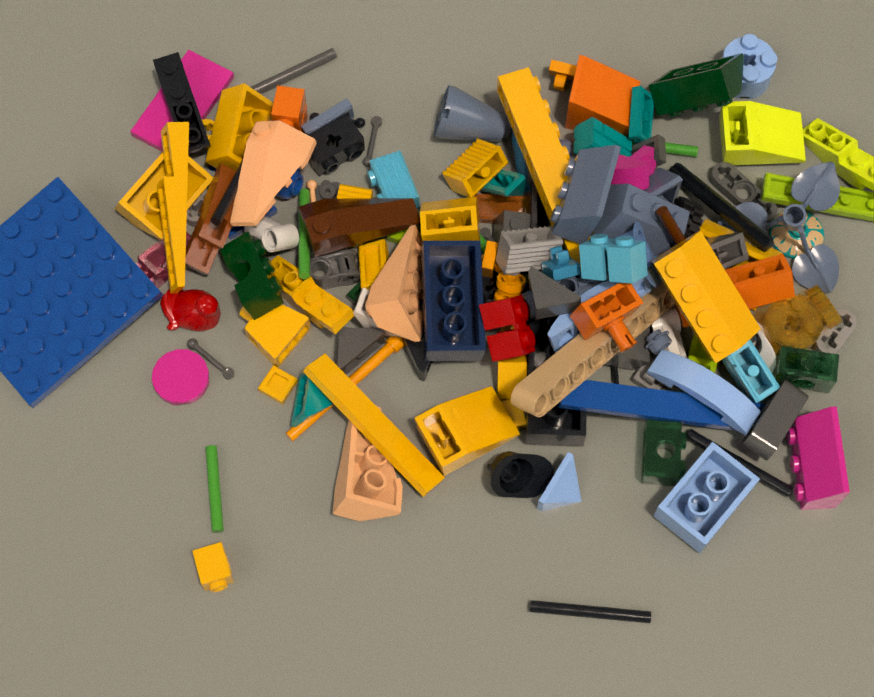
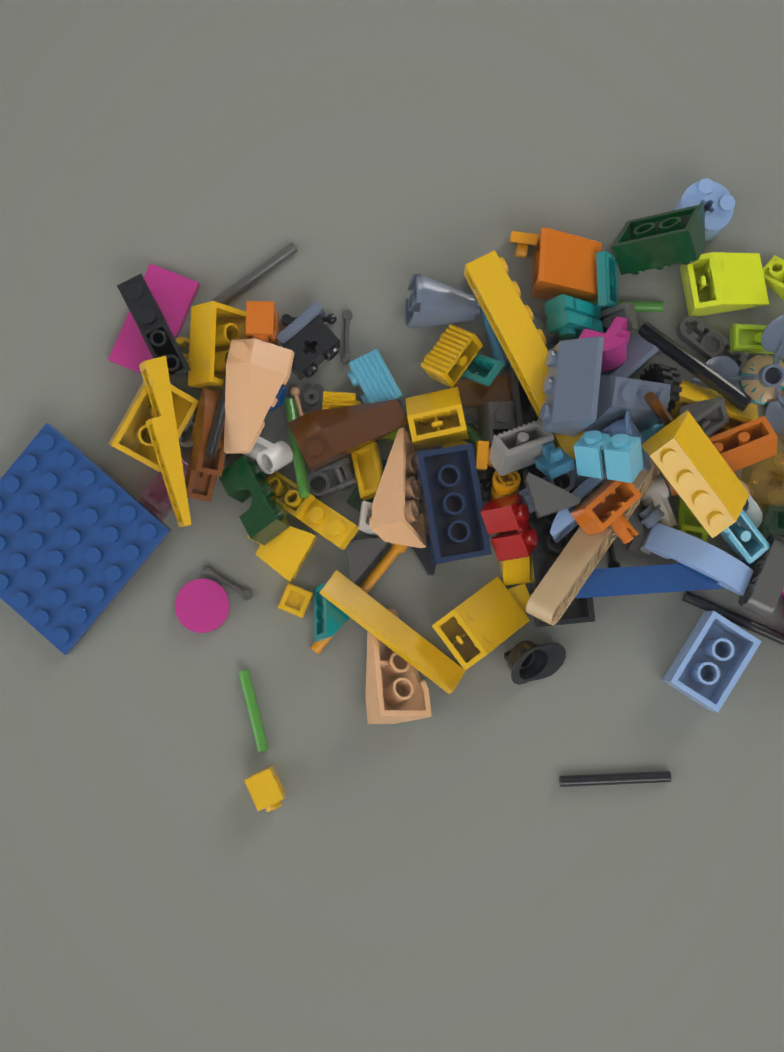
camera: 10 degrees left, 15 degrees up
(191, 310) = (203, 538): red hair -> none
(562, 488) = (576, 665): light blue slope -> none
(663, 436) = (653, 609): clear green brick -> none

